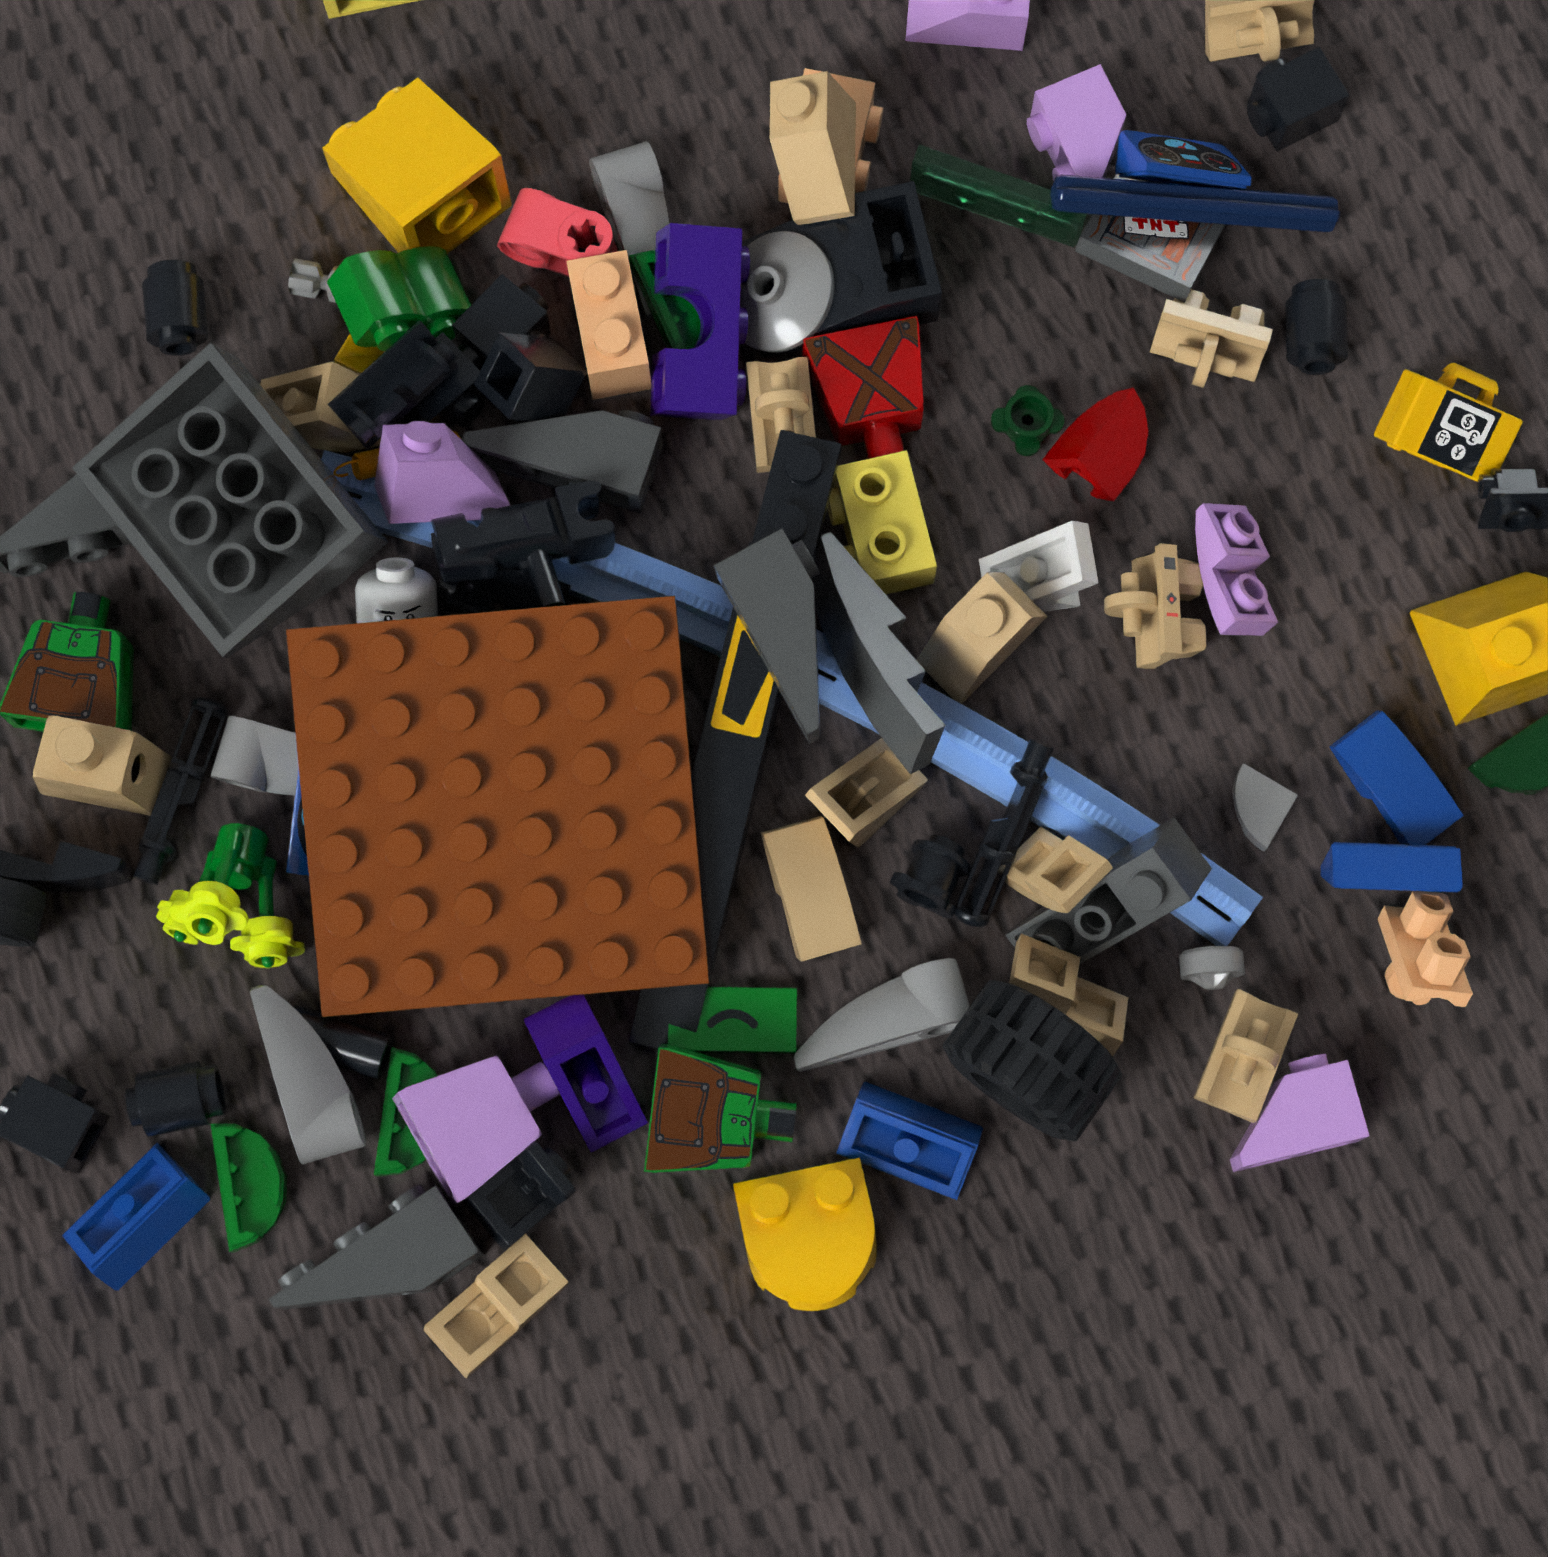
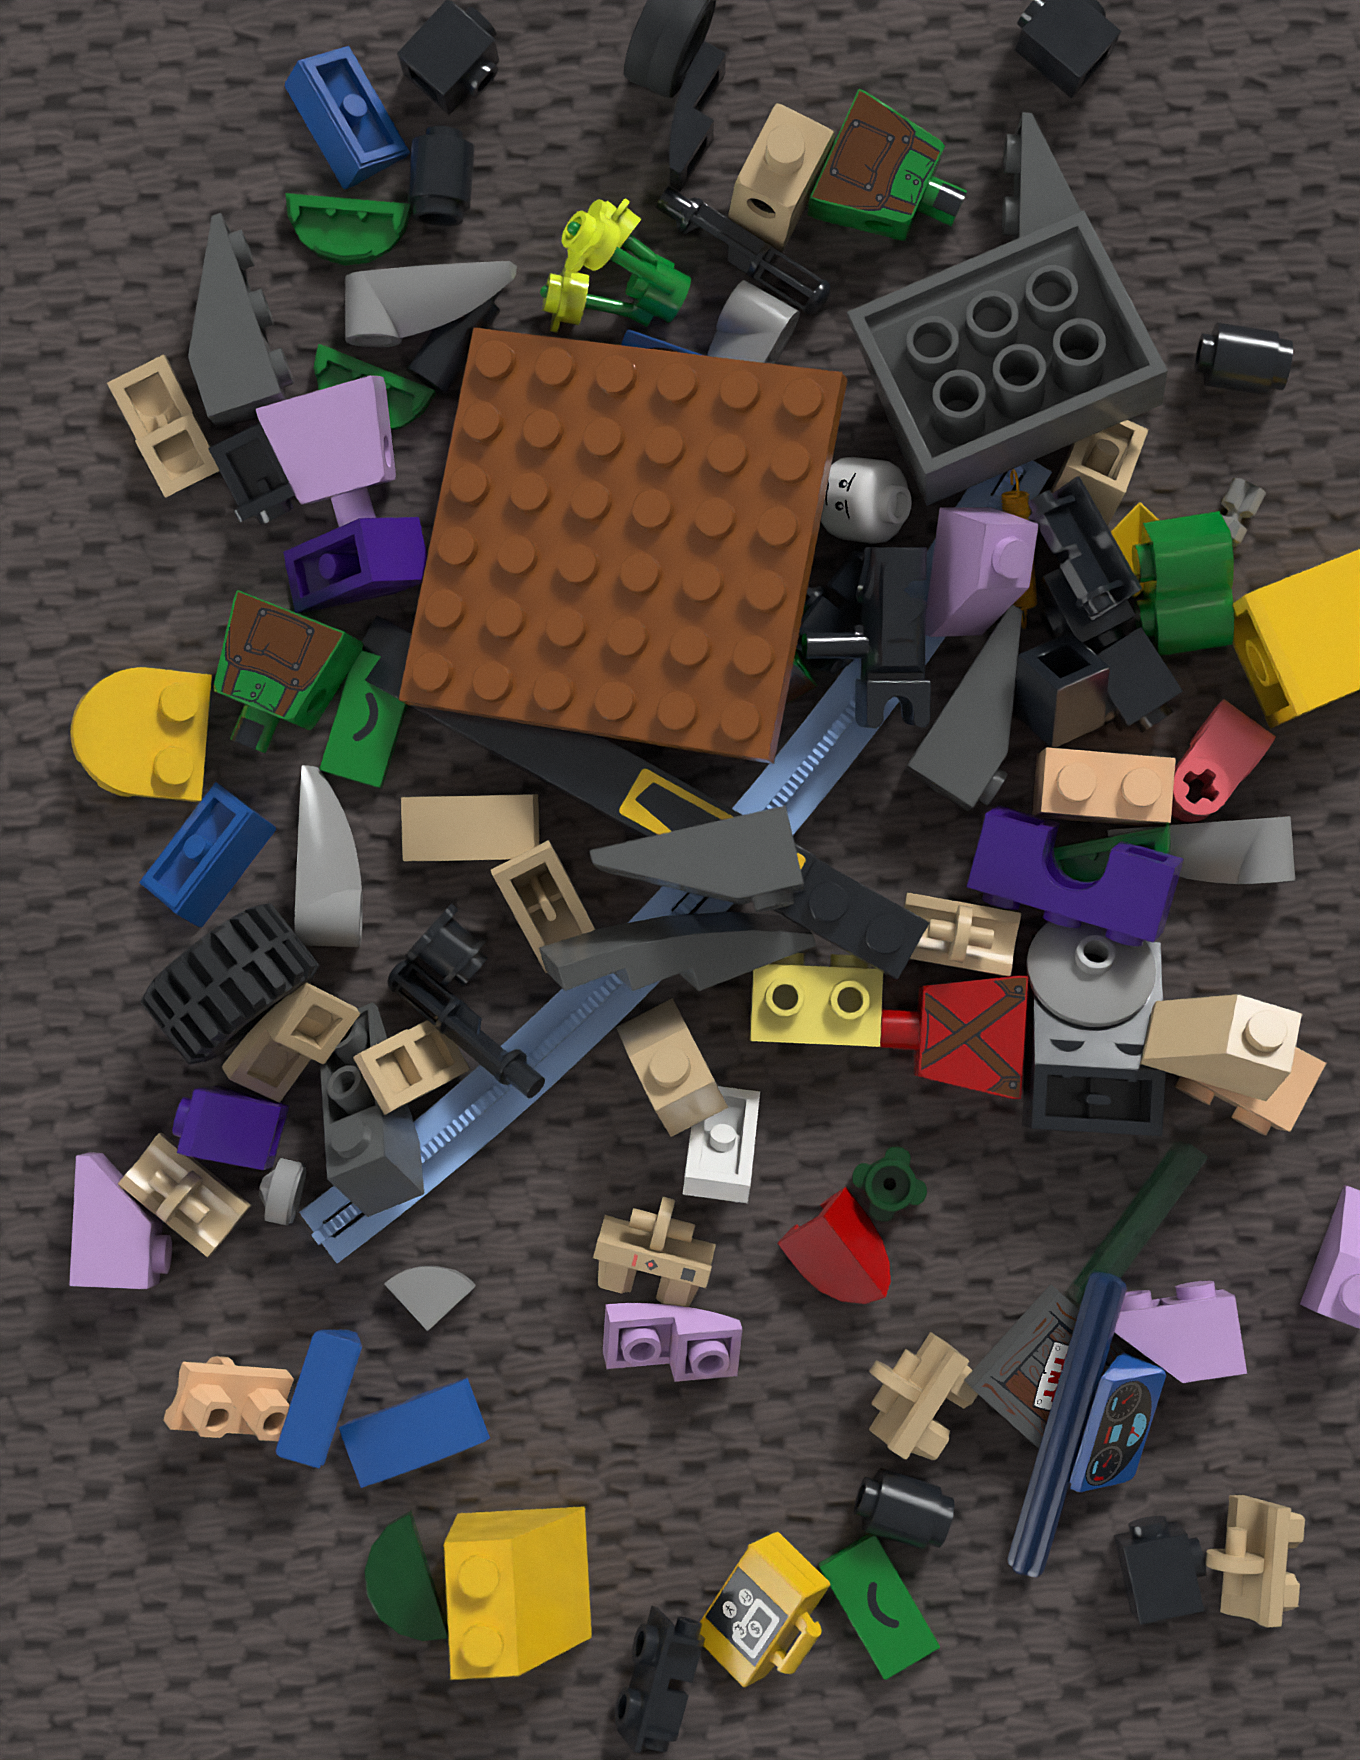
camera: 110 degrees right, 10 degrees up
(1167, 1028) = (230, 1127): none -> dark purple slope
(1408, 328) = (879, 1605): none -> green tile

